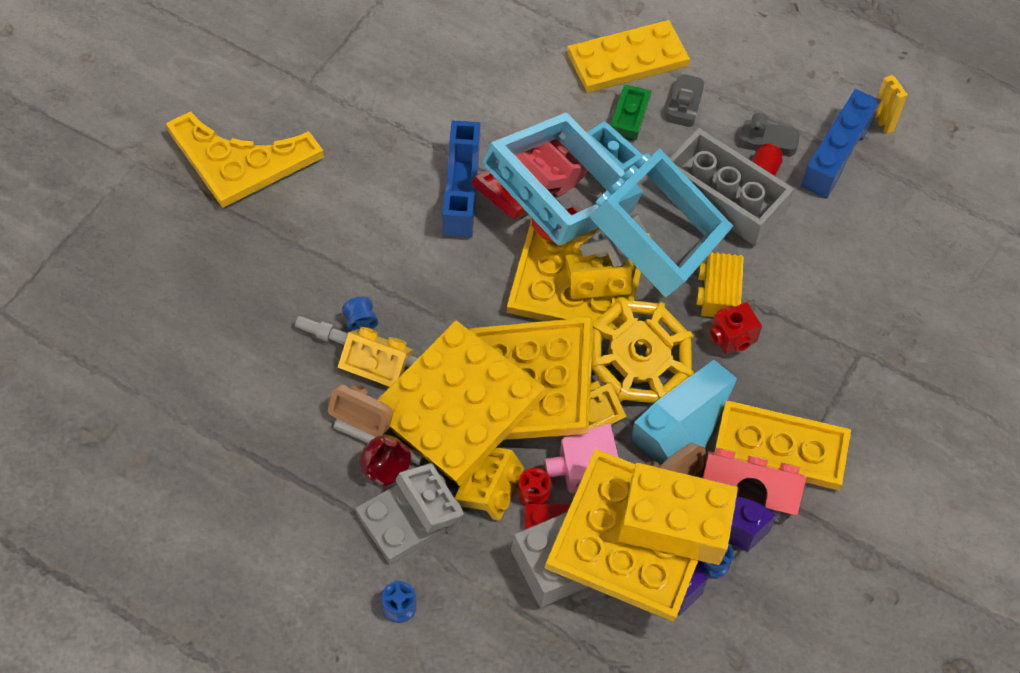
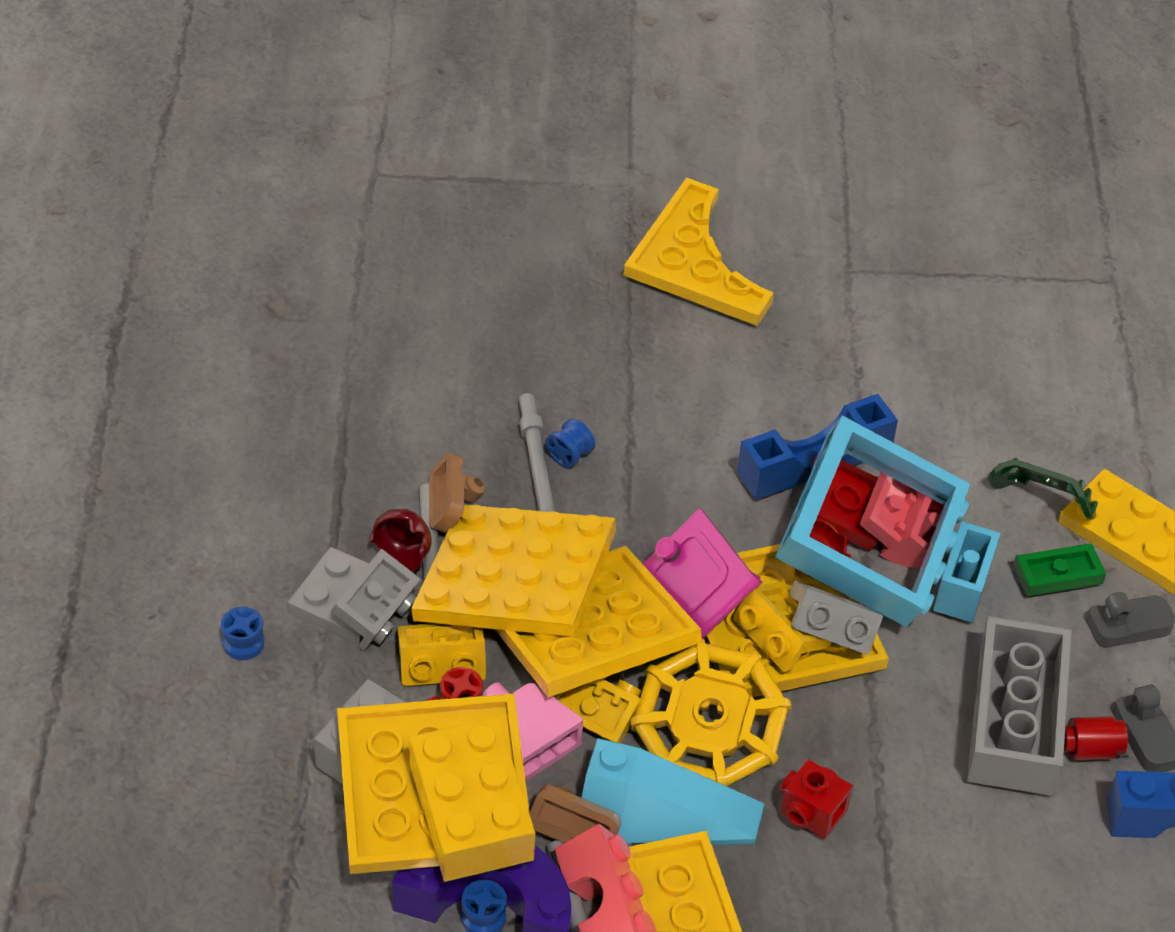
camera: 60 degrees right, 10 degrees down
(374, 356) = (528, 476): yellow bracket -> none
(532, 292) = (707, 574): none -> dark pink container
(591, 66) = (1021, 472): none -> dark green piece
(637, 243) = (814, 687): medium azure window -> none
(721, 283) = (875, 762): yellow brick -> none

